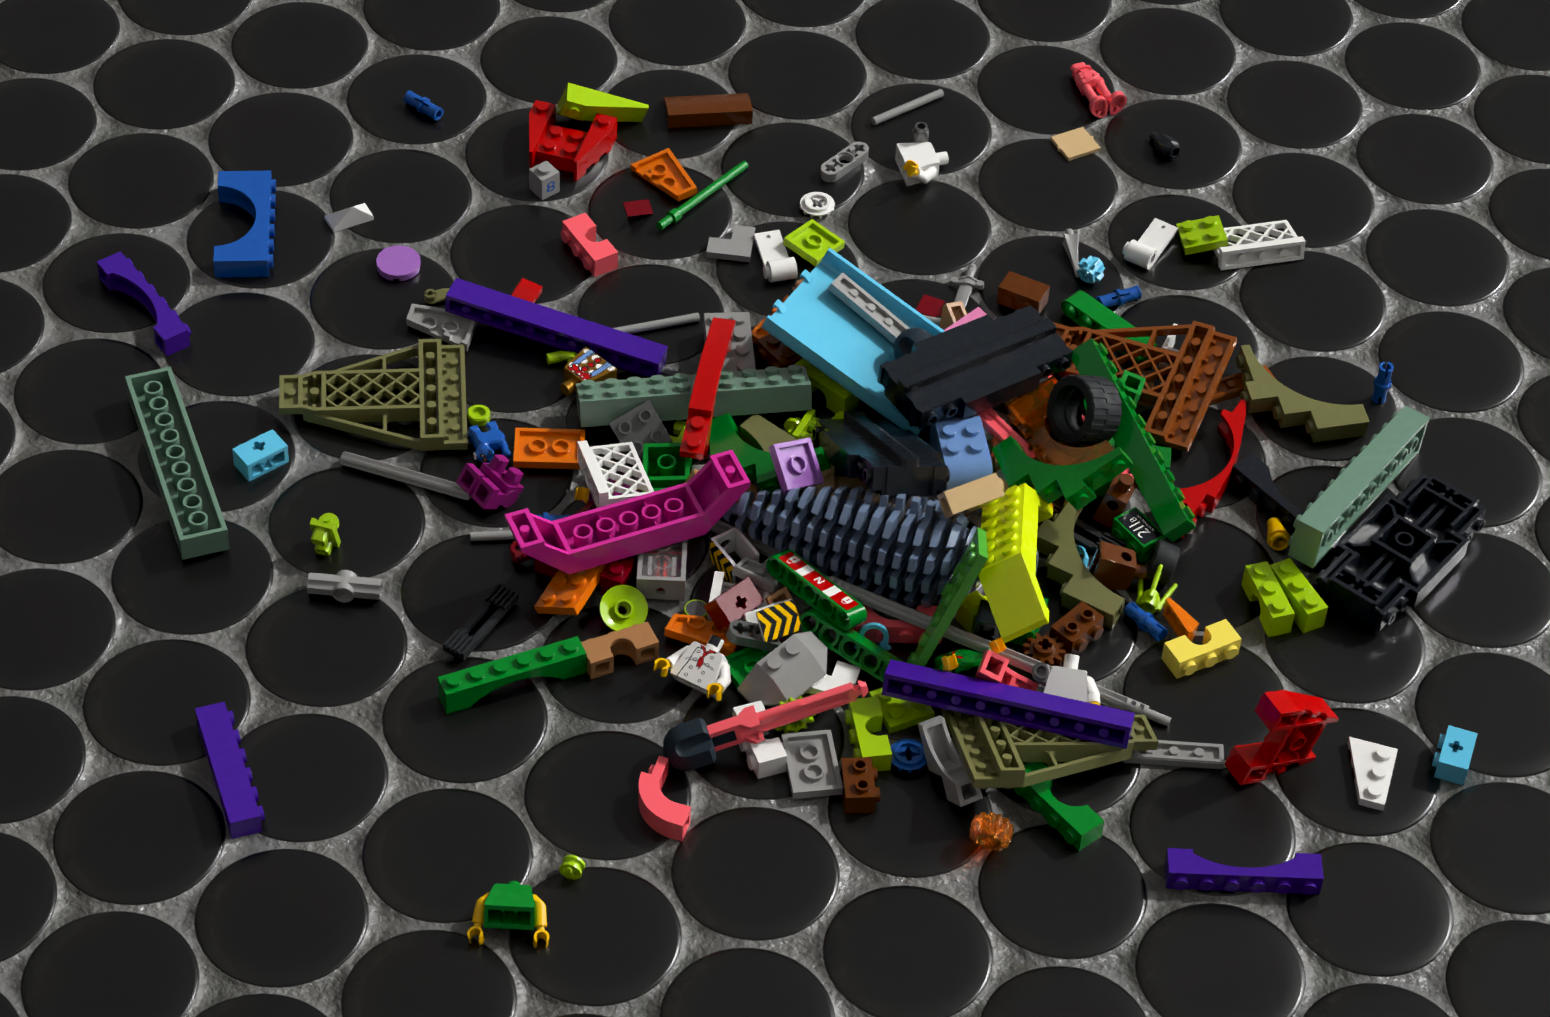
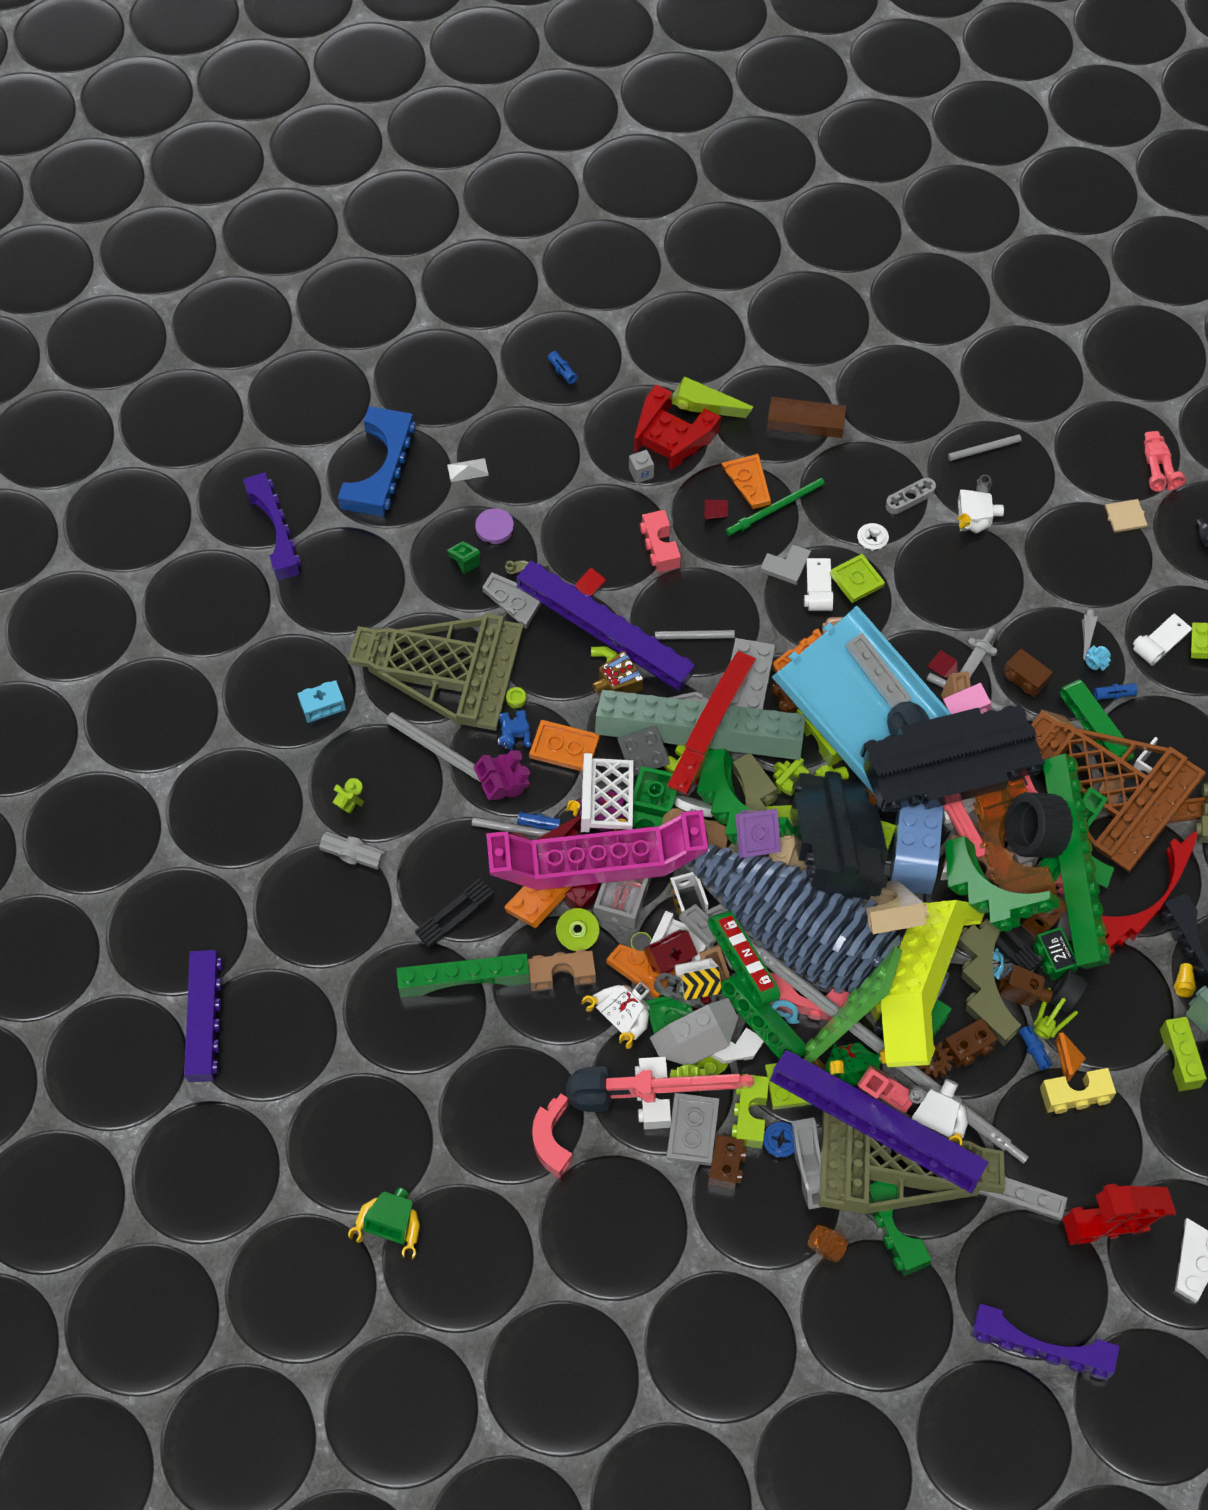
camera: 20 degrees right, 15 degrees up
(177, 463) = (249, 697): sand green brick -> none
(379, 293) = (466, 556): none -> green slope
(572, 867) = (456, 1186): lime bush -> none
(1264, 587) = (1154, 1038): lime arch -> none

